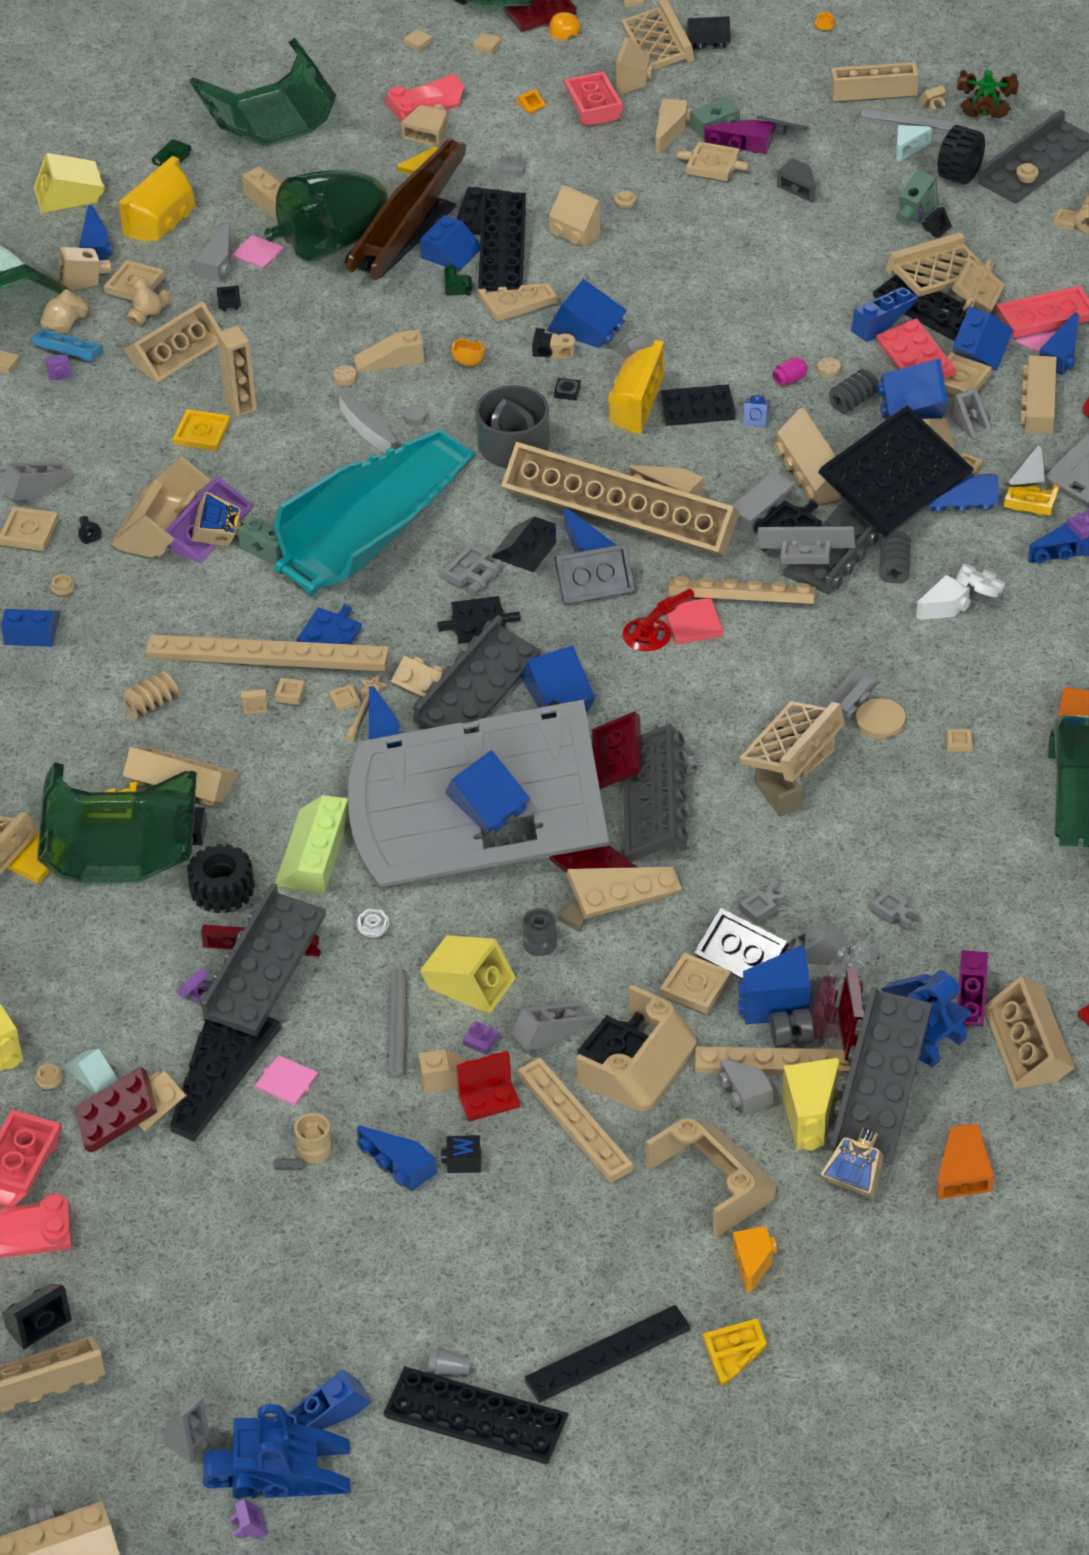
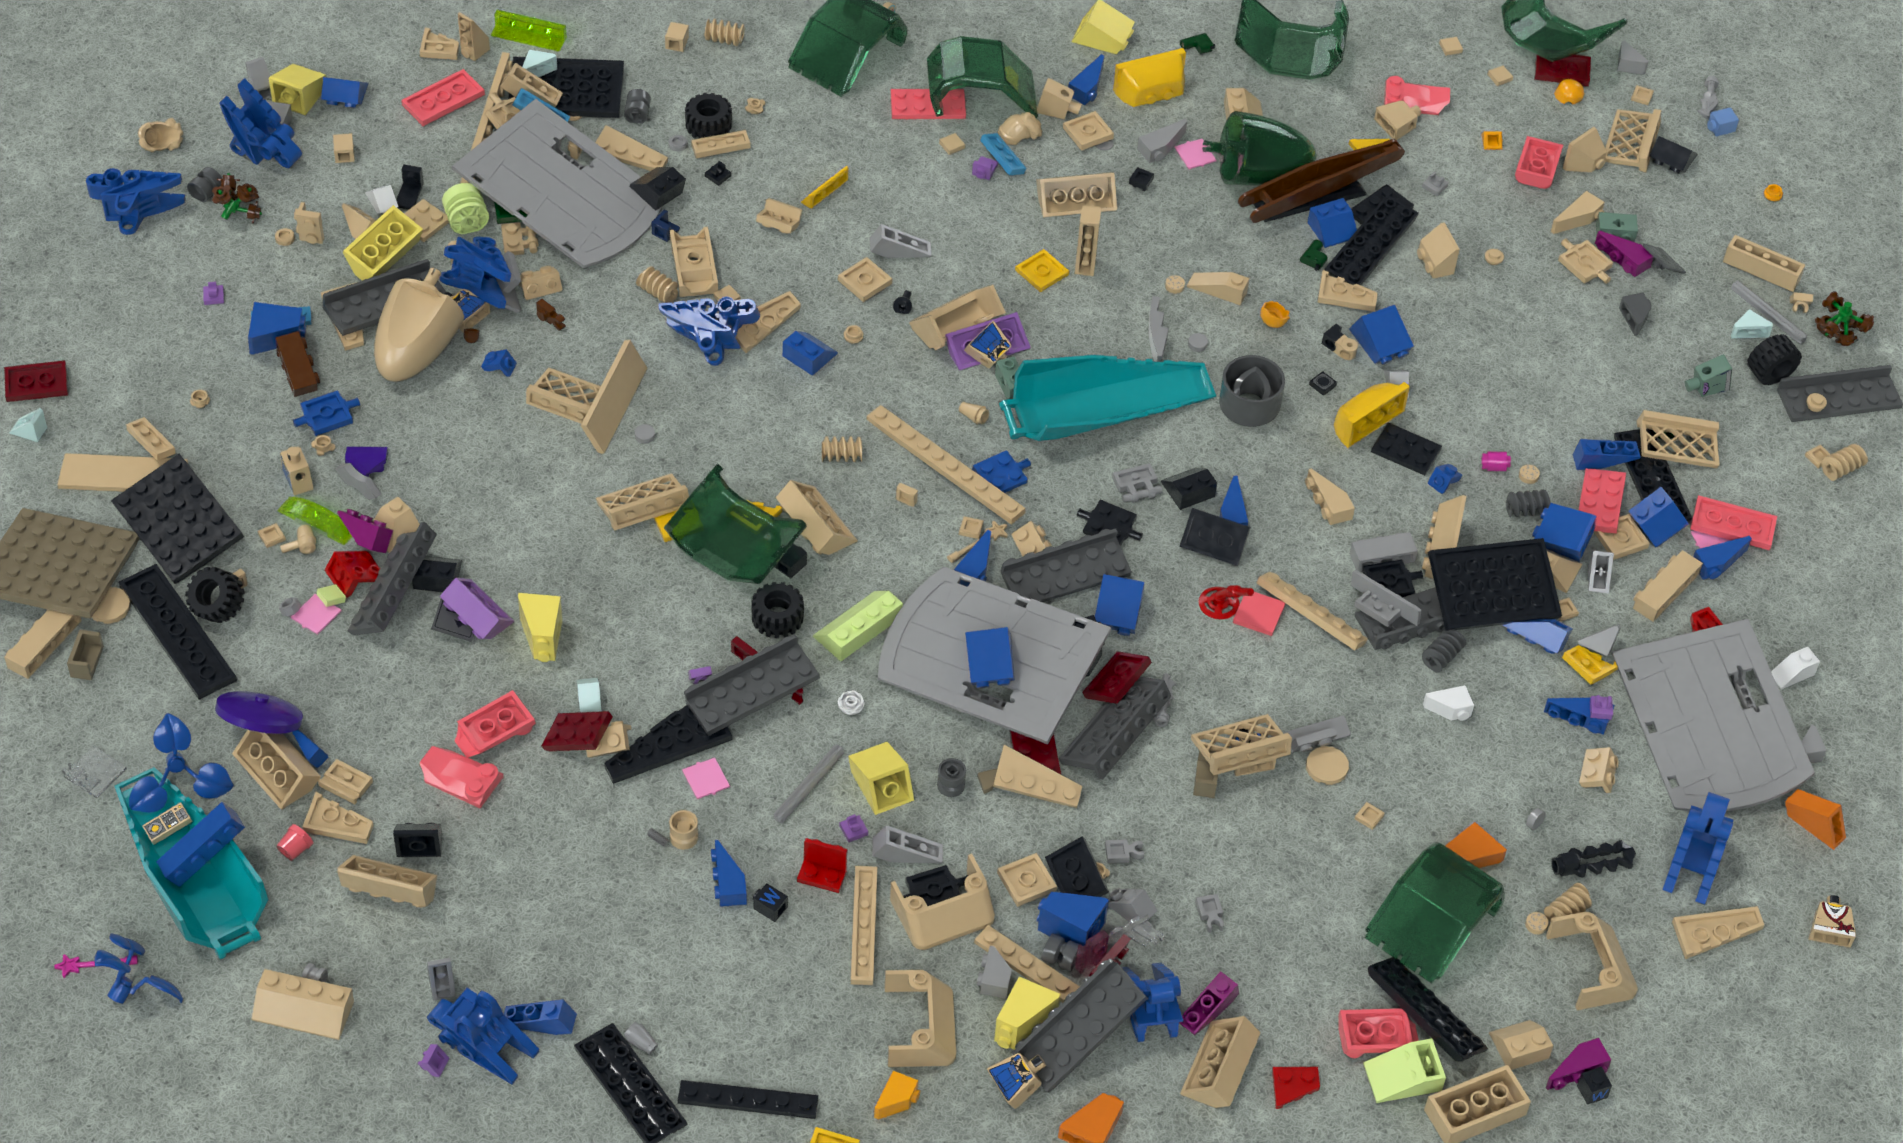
camera: 30 degrees right, 5 degrees up
(48, 1076) = (559, 681): tan plate -> none
(146, 302) = (1082, 152): tan animal -> none
(252, 591) = (974, 412): none -> tan cone
(290, 691) = (937, 501): tan plate -> none
(439, 1069) = (805, 828): tan slope -> none
(620, 499) = (1280, 491): tan brick -> none
(937, 222) = (1713, 404): black tile -> none
(978, 286) = (1695, 473): tan plate -> none
(983, 582) = (1488, 705): white plate -> none

